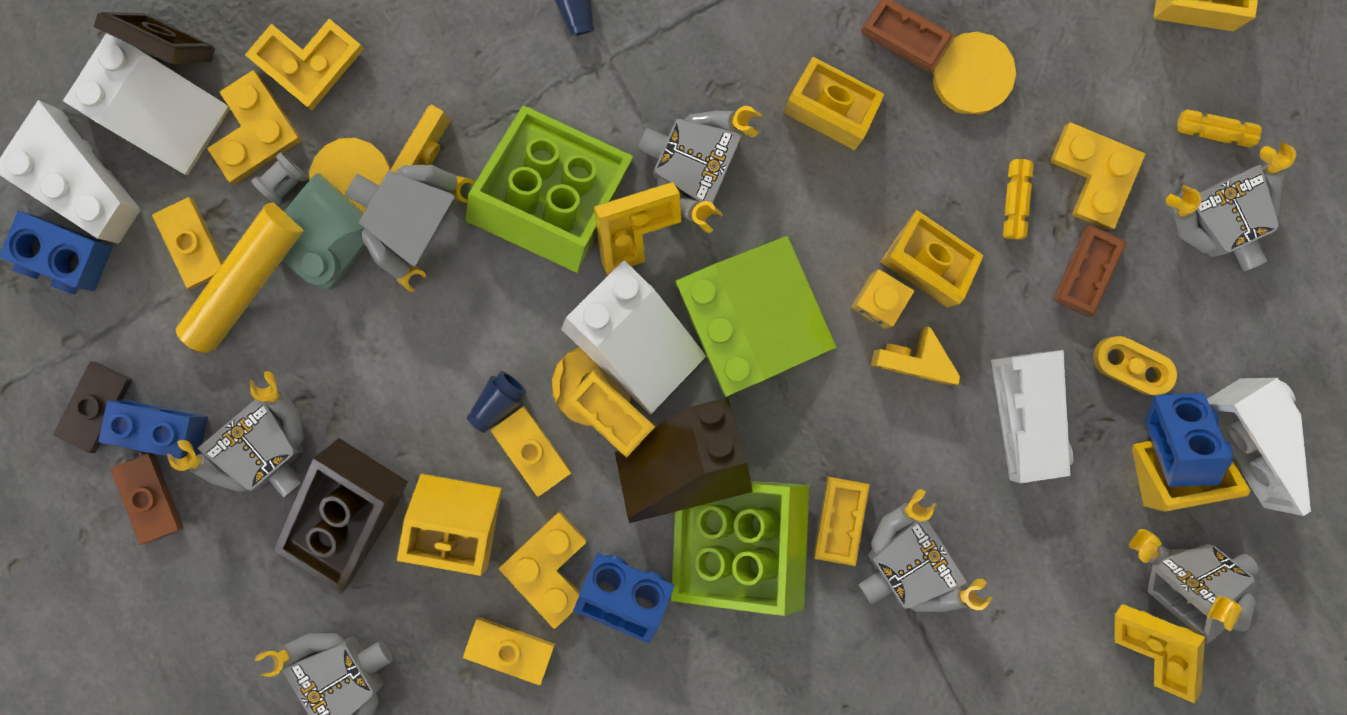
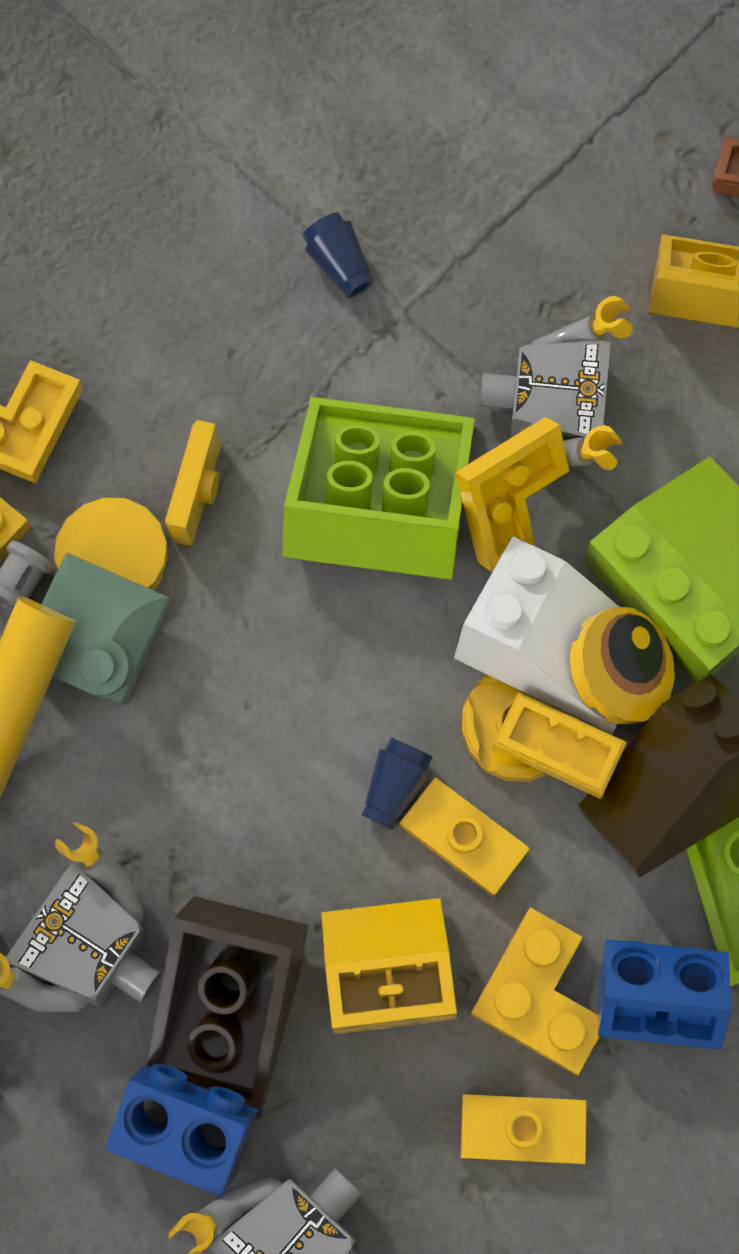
camera: 15 degrees left, 15 degrees down
(283, 594) = (178, 1145): none -> blue brick
(404, 214) = (204, 566): light grey torso -> none
(670, 372) = (622, 665): none -> tile

